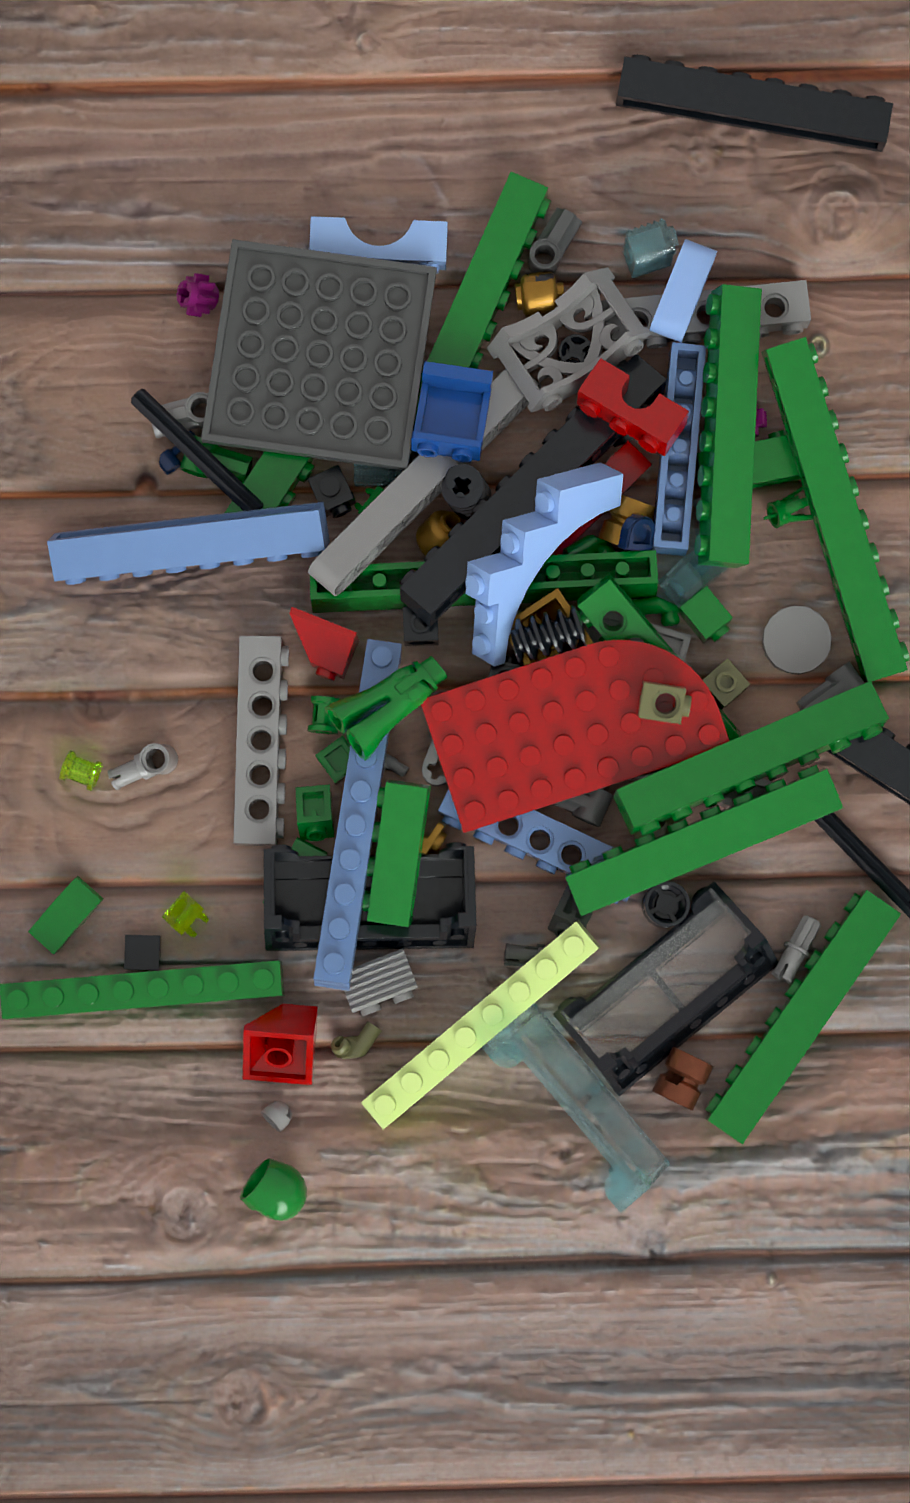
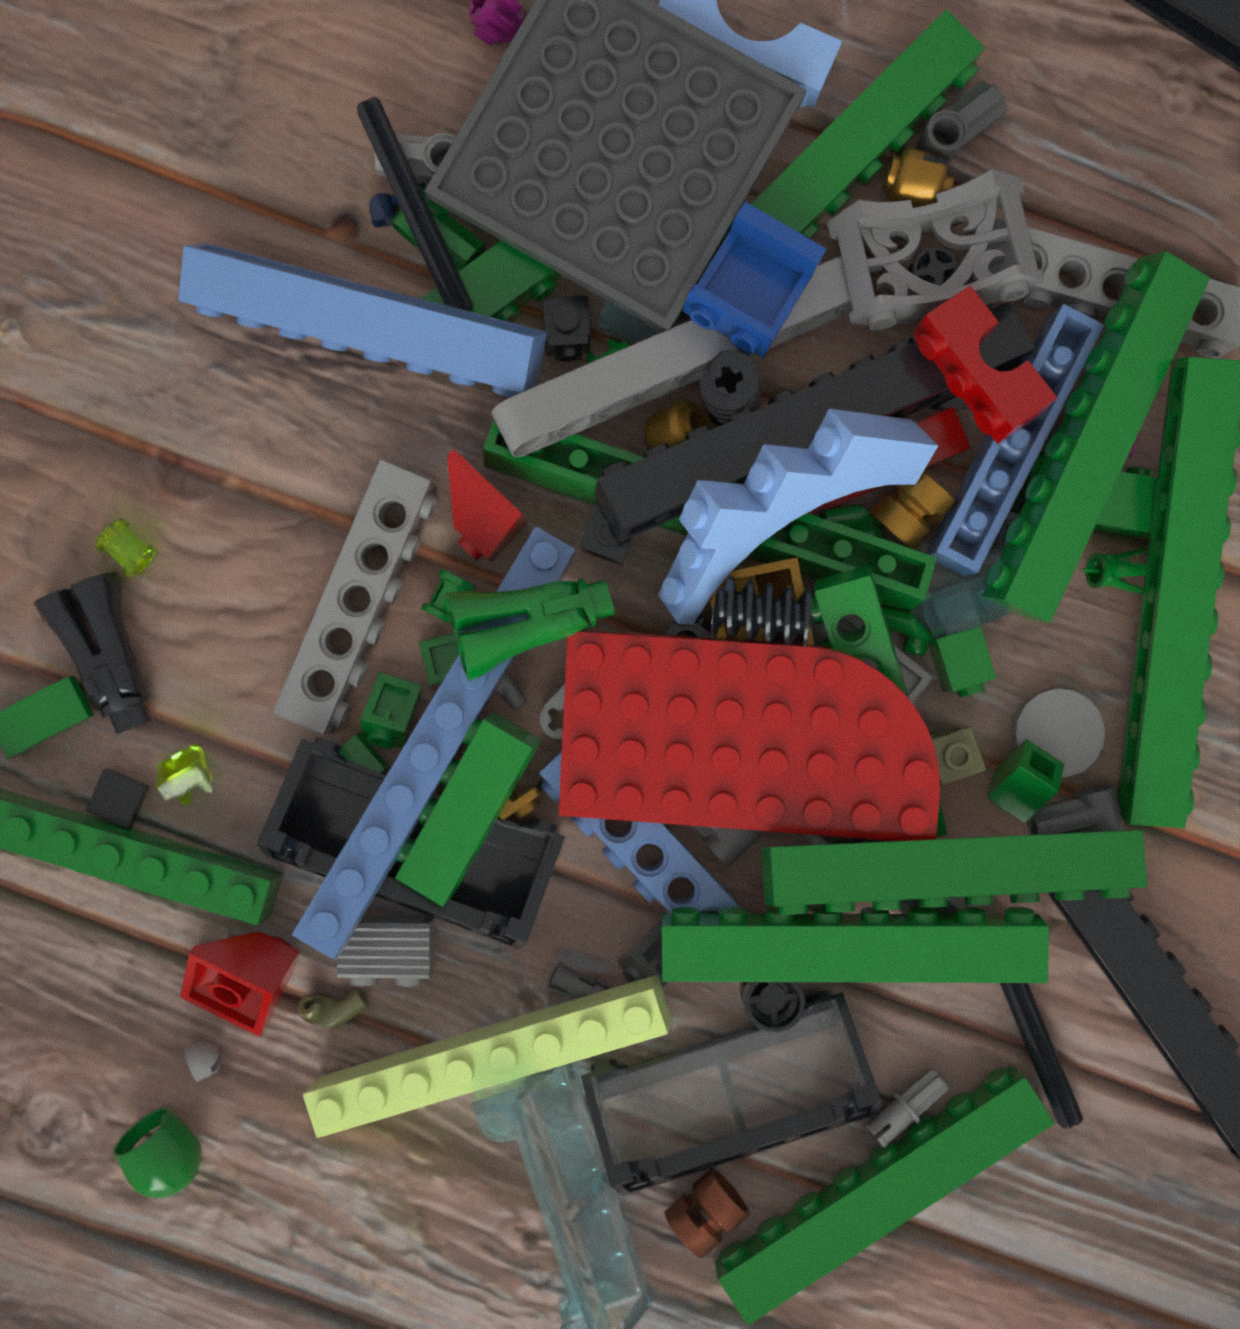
camera: 20 degrees right, 5 degrees up
(106, 863) = (107, 673): none -> black piece
(143, 766) = (205, 572): light grey pin -> none
(637, 533) = (923, 527): dark blue tile -> none
(649, 248) = (1081, 173): clear light blue brick -> none
(649, 694) = (860, 746): olive brick -> none
(683, 290) = (1104, 243): light blue beam -> none
(783, 682) = (1025, 780): none -> green brick

